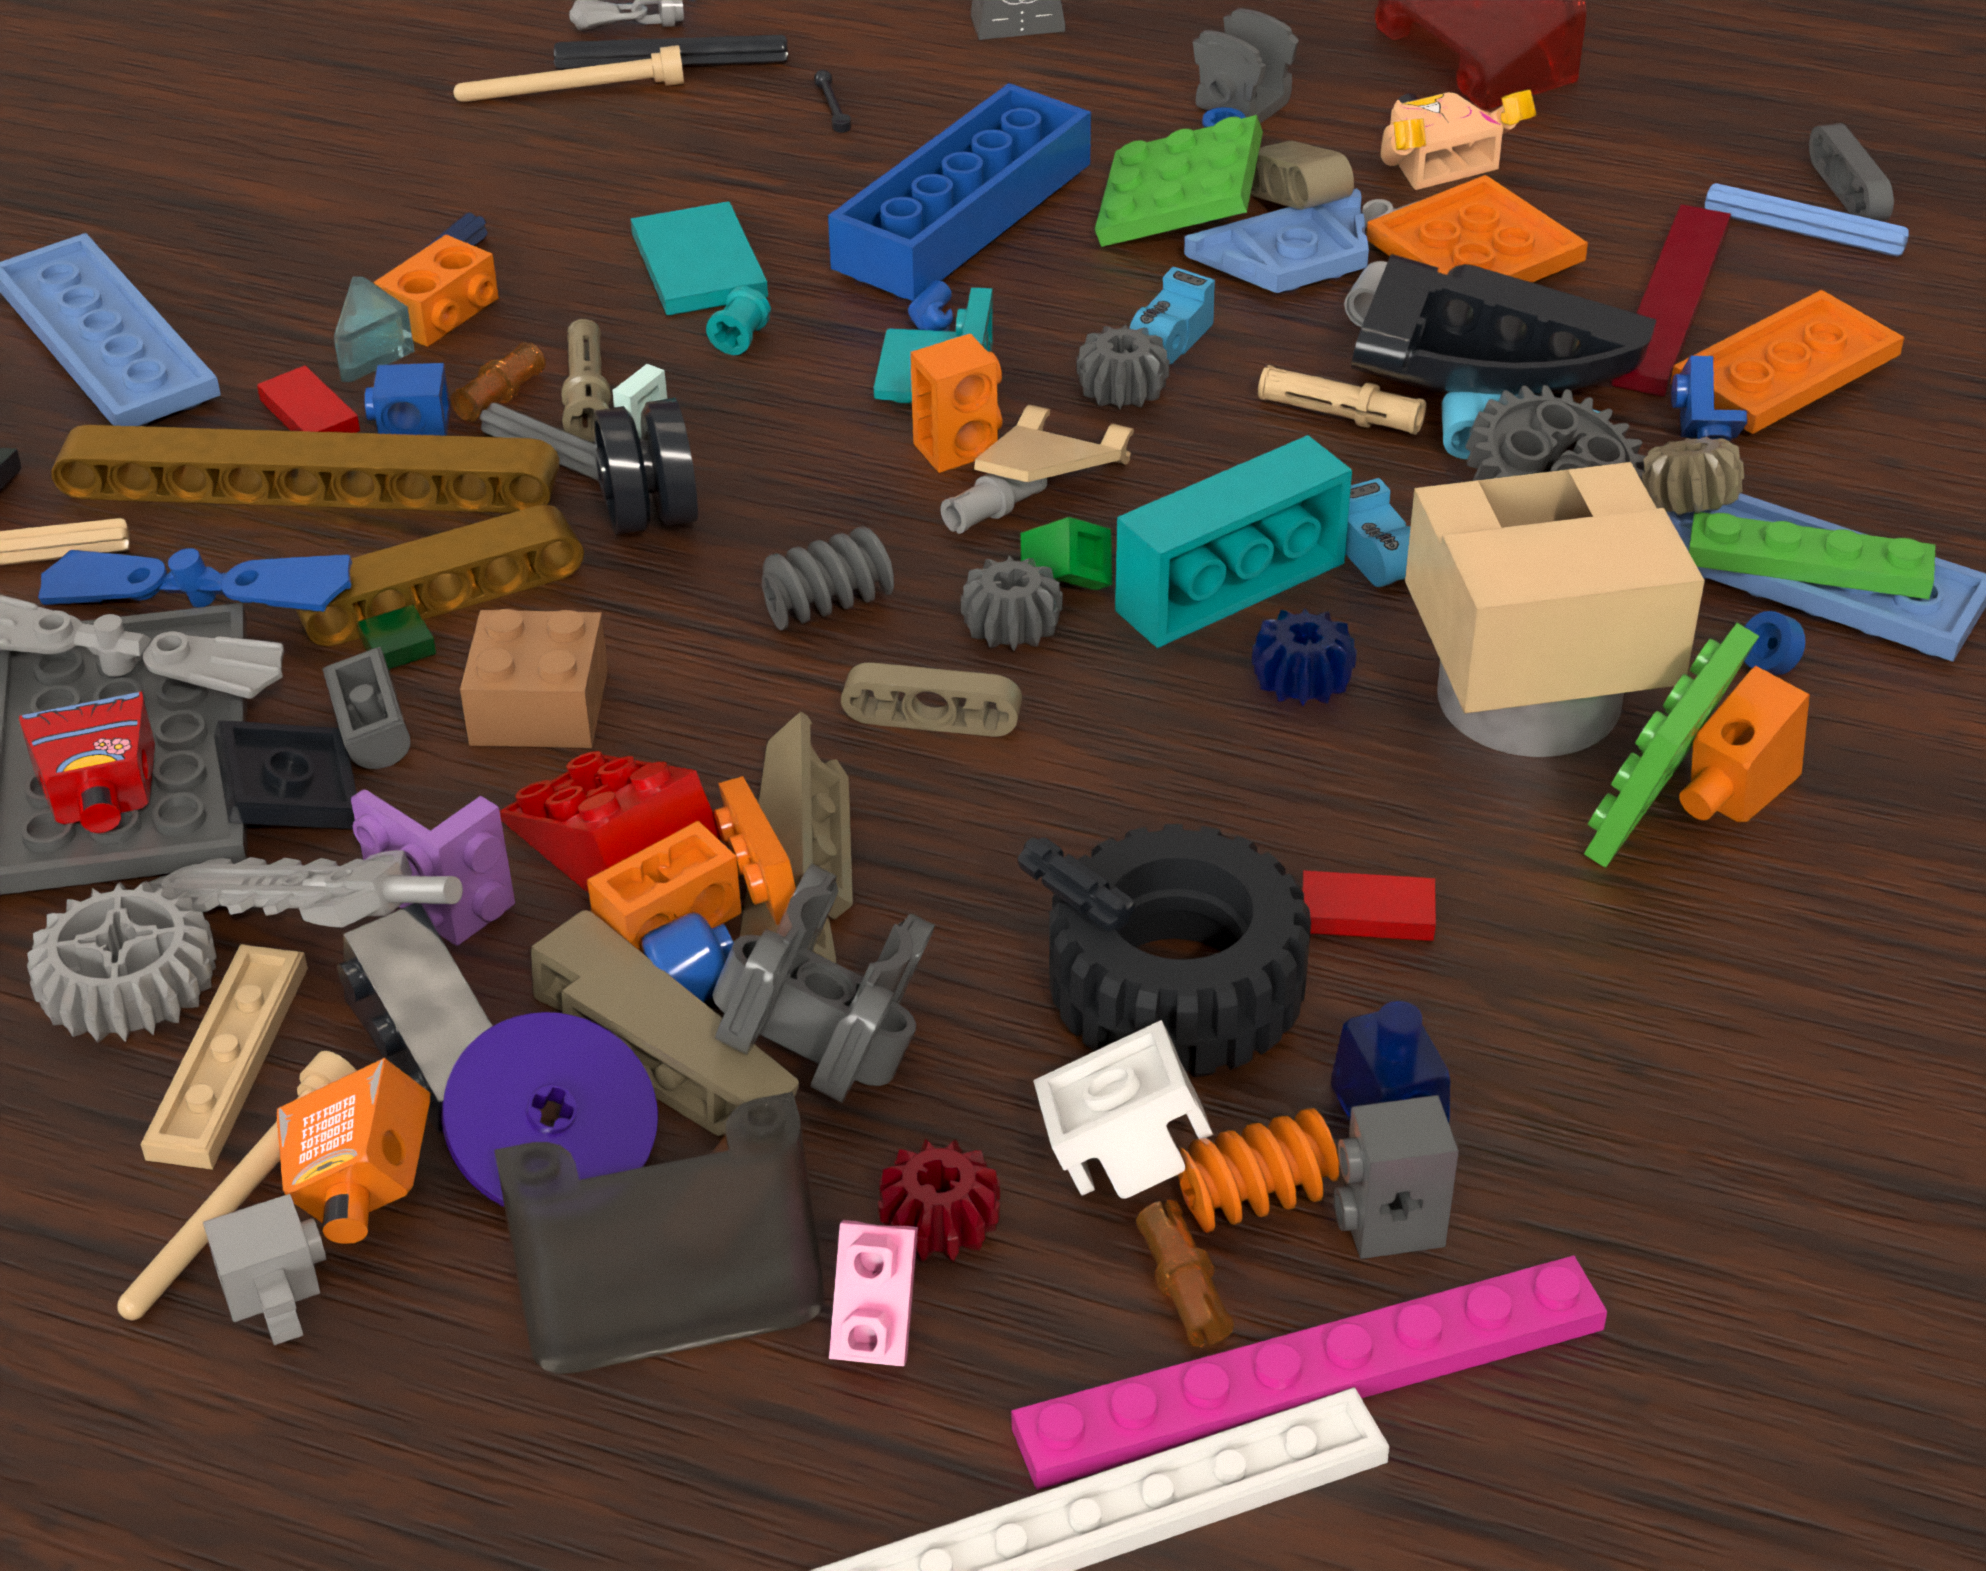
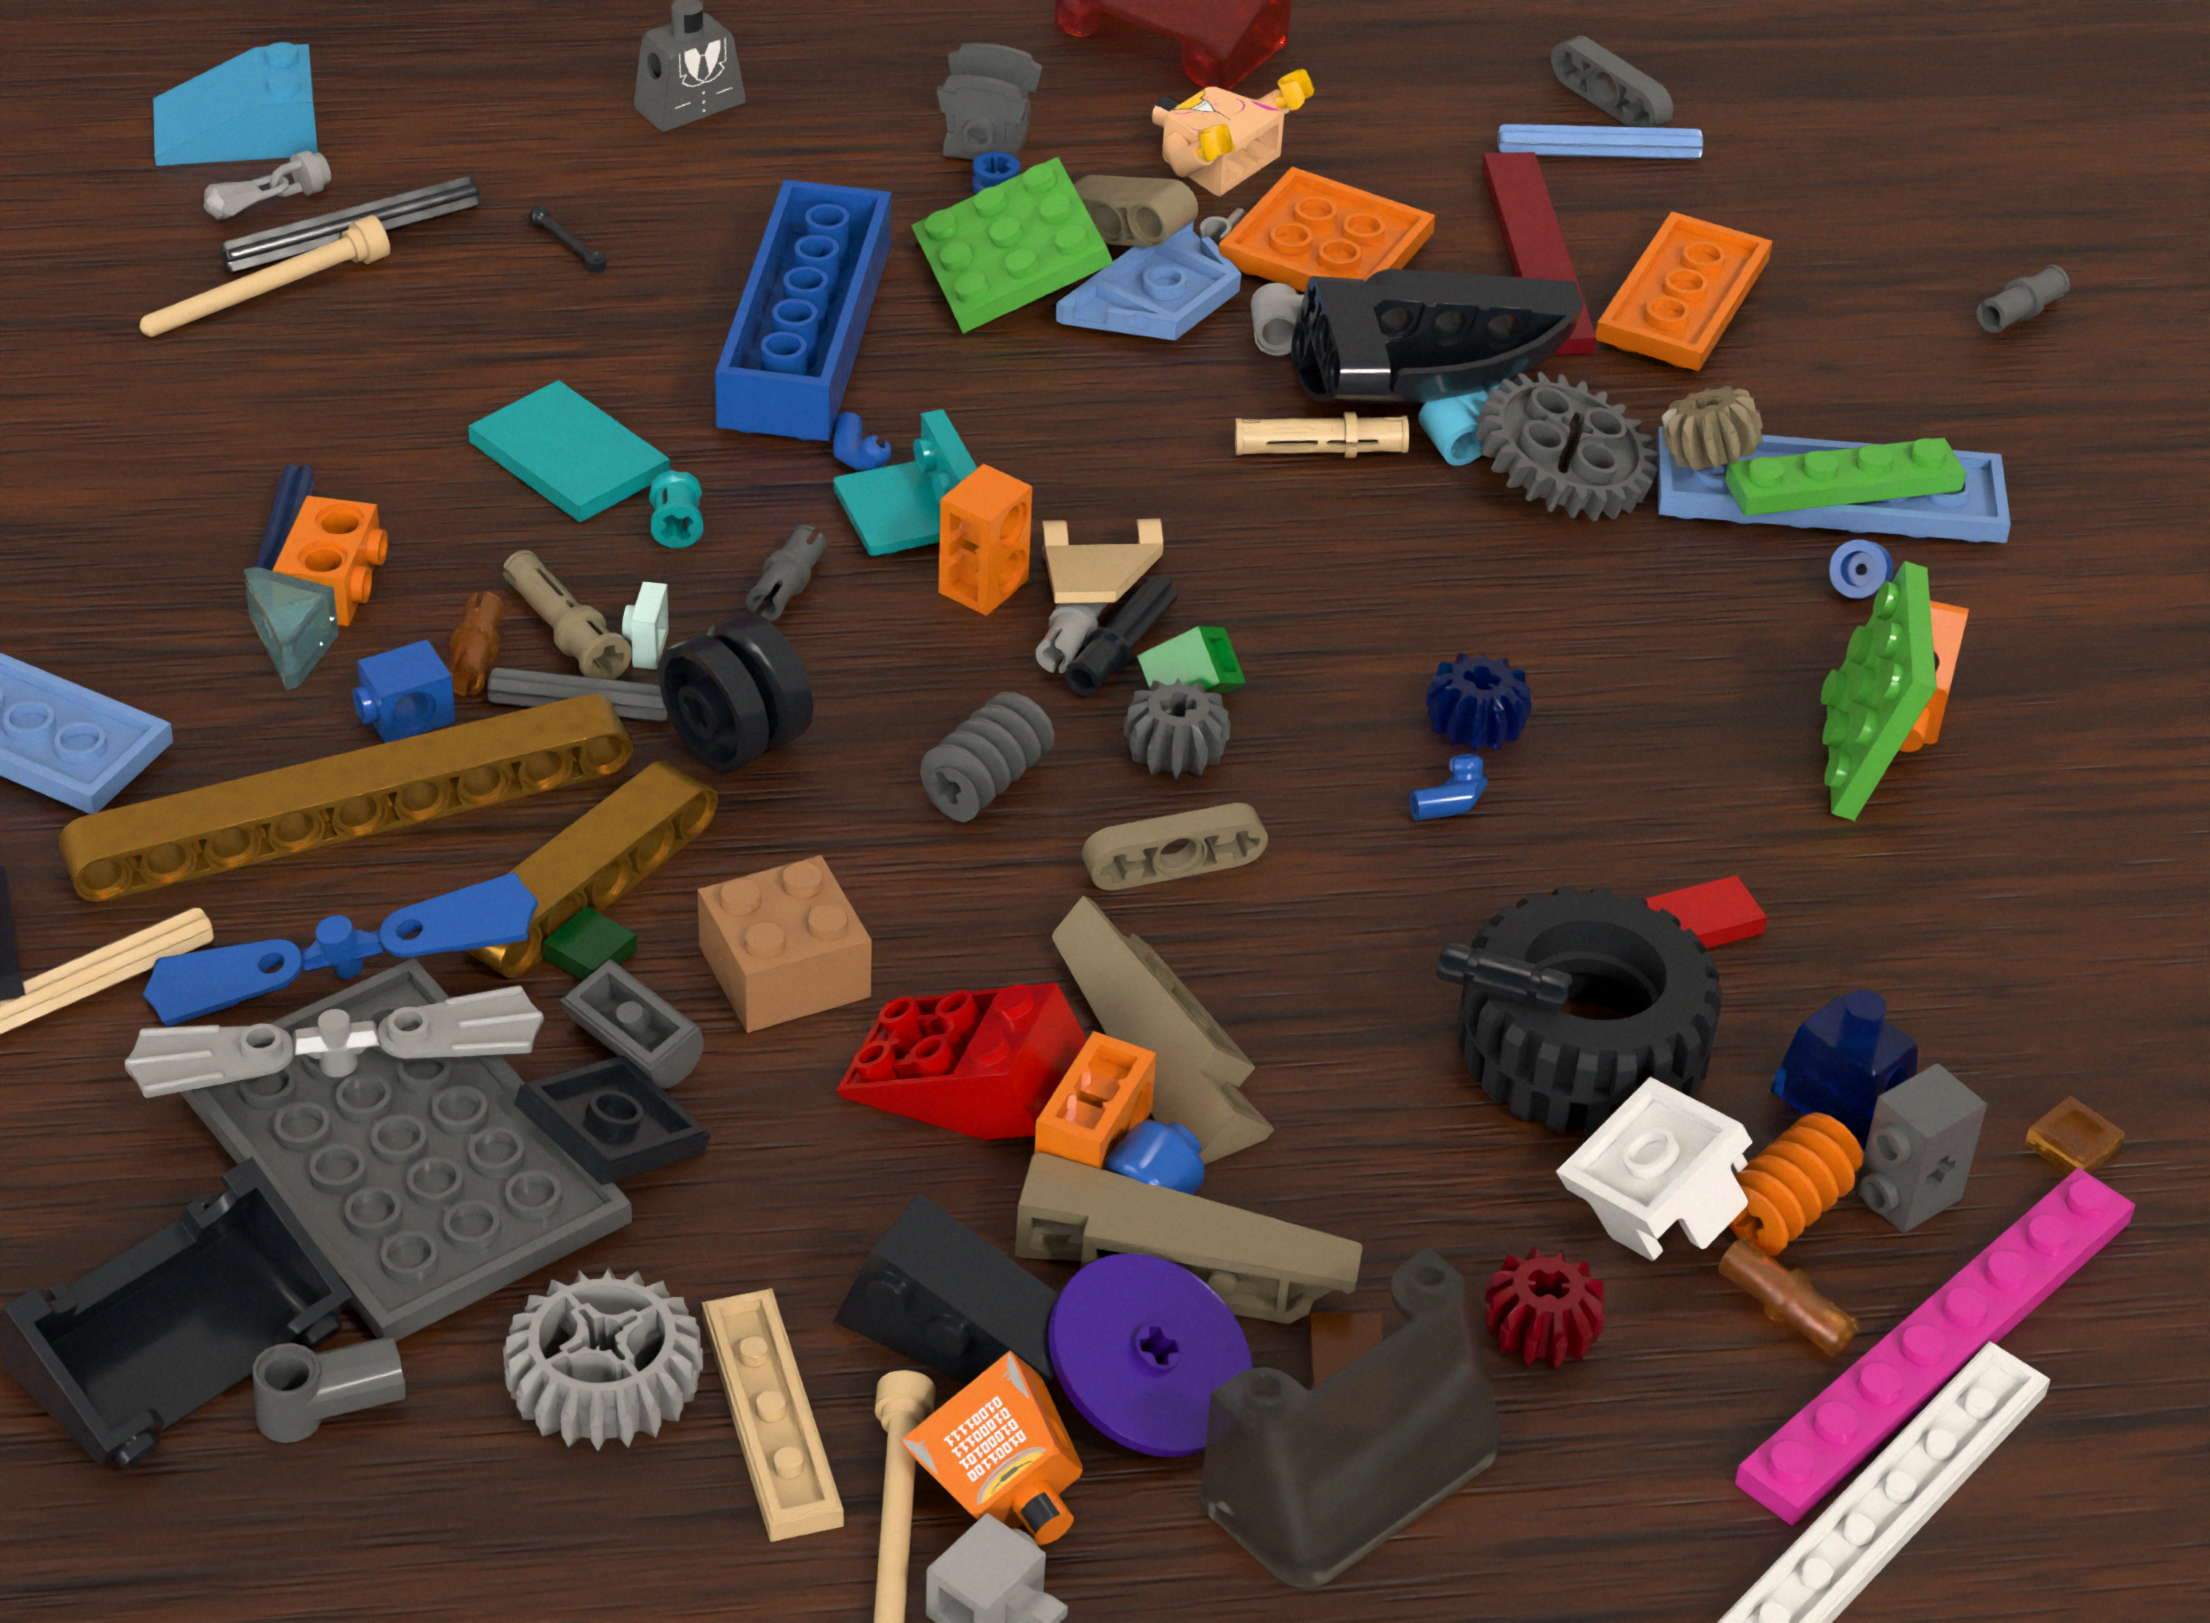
camera: 30 degrees left, 0 degrees up
(92, 759) = (422, 1169): red torso -> none
(306, 403) = (282, 726): red tile -> none
(320, 889) = (819, 1212): light grey bar -> none
(462, 846) = (849, 1164): medium lavender bracket -> none
(756, 846) = (1184, 1047): orange plate -> none
(788, 392) = (786, 572): none -> dark grey pin
(816, 1006) = (1342, 1165): dark grey piece -> none
(873, 1293) = (1564, 1407): bright pink hips -> none
(1010, 520) = (1111, 646): none -> black axle
(1122, 366) = (1097, 456): dark grey gear -> none
(1179, 311) = (1105, 389): dark azure leg -> none
(1225, 733) = (1456, 795): none -> blue arm
(1231, 540) = (1348, 607): teal brick -> none
(1376, 534) = (1454, 565): dark azure leg -> none
(1550, 603) = (1706, 586): tan piece -> none
(1600, 1228) = (2074, 1137): none -> clear orange tile
(1694, 395) = (1646, 354): blue bracket -> none

